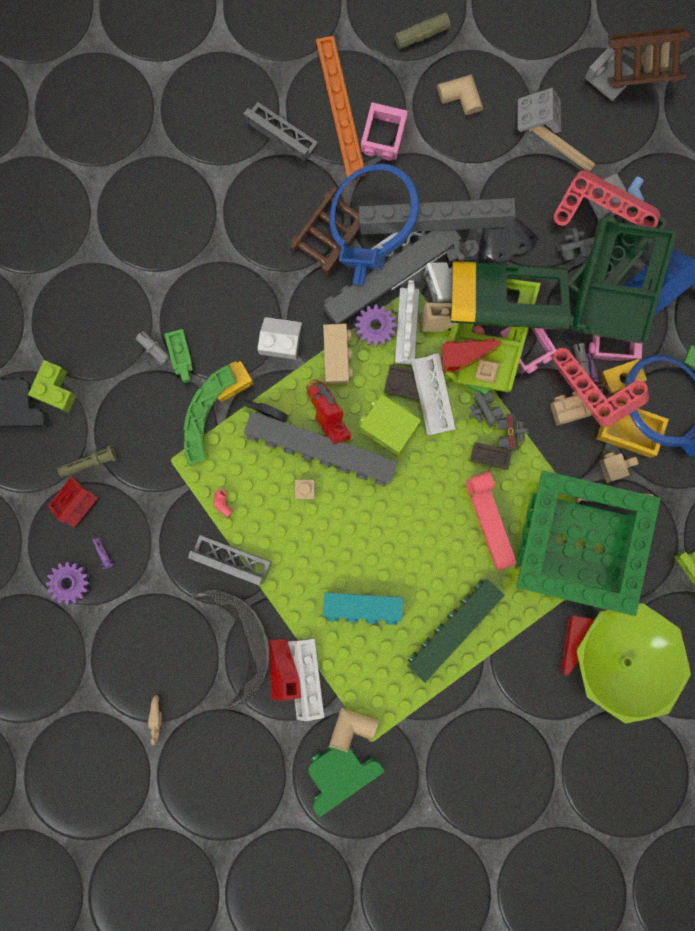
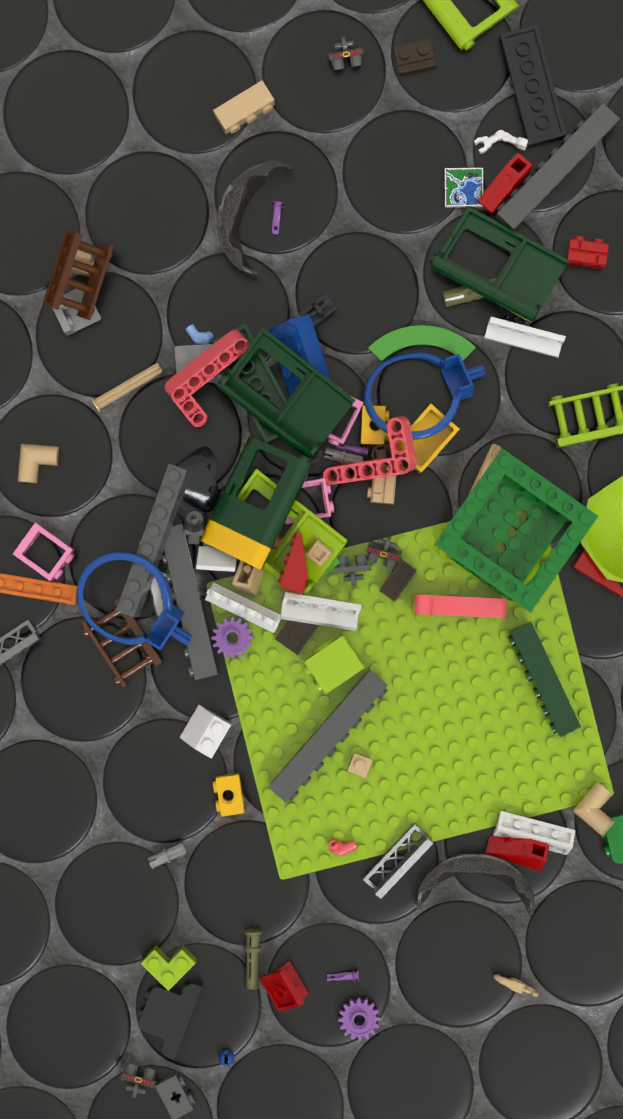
camera: 75 degrees left, 5 degrees up
(179, 354) = (183, 832): bright green hinge -> none
(199, 410) = (249, 837): bright green tile -> none
(266, 410) = (272, 773): black piece -> none
(327, 412) = (297, 716): red plate -> none
(337, 354) = (245, 684): tan brick -> none
(362, 607) = (489, 755): teal brick -> none
(540, 109) = (85, 394): light grey bracket -> none
(567, 249) = (227, 414): dark grey hips -> none
(615, 467) = (453, 468): tan brick -> none

